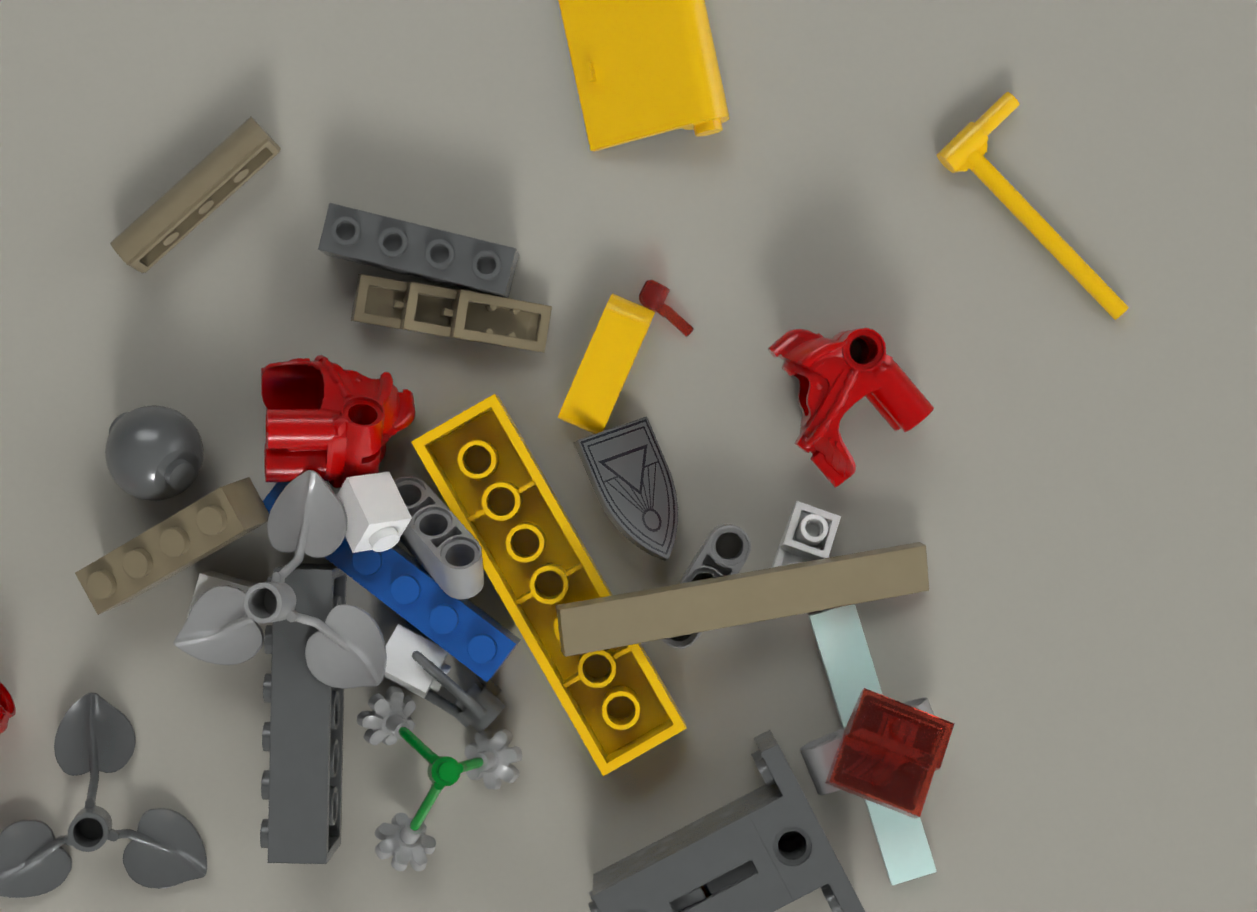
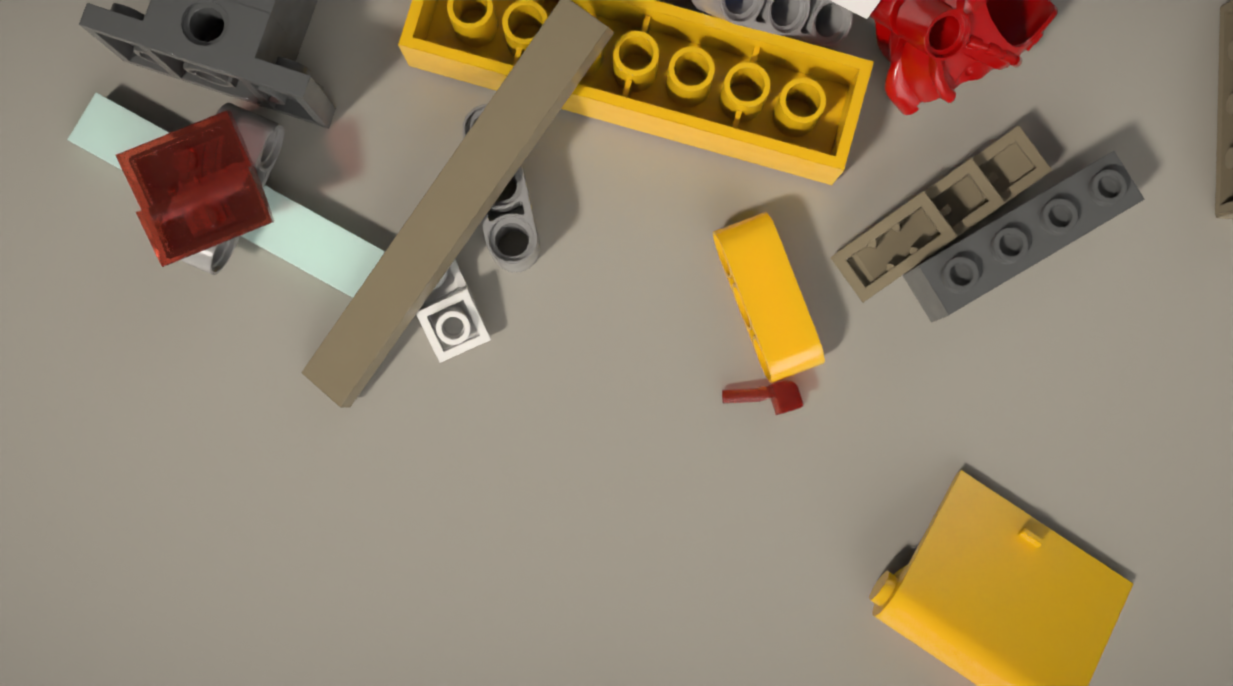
camera: 130 degrees right, 5 degrees down
(633, 484) = (645, 214): dark grey shield -> none
(835, 382) = (553, 469): red helmet -> none

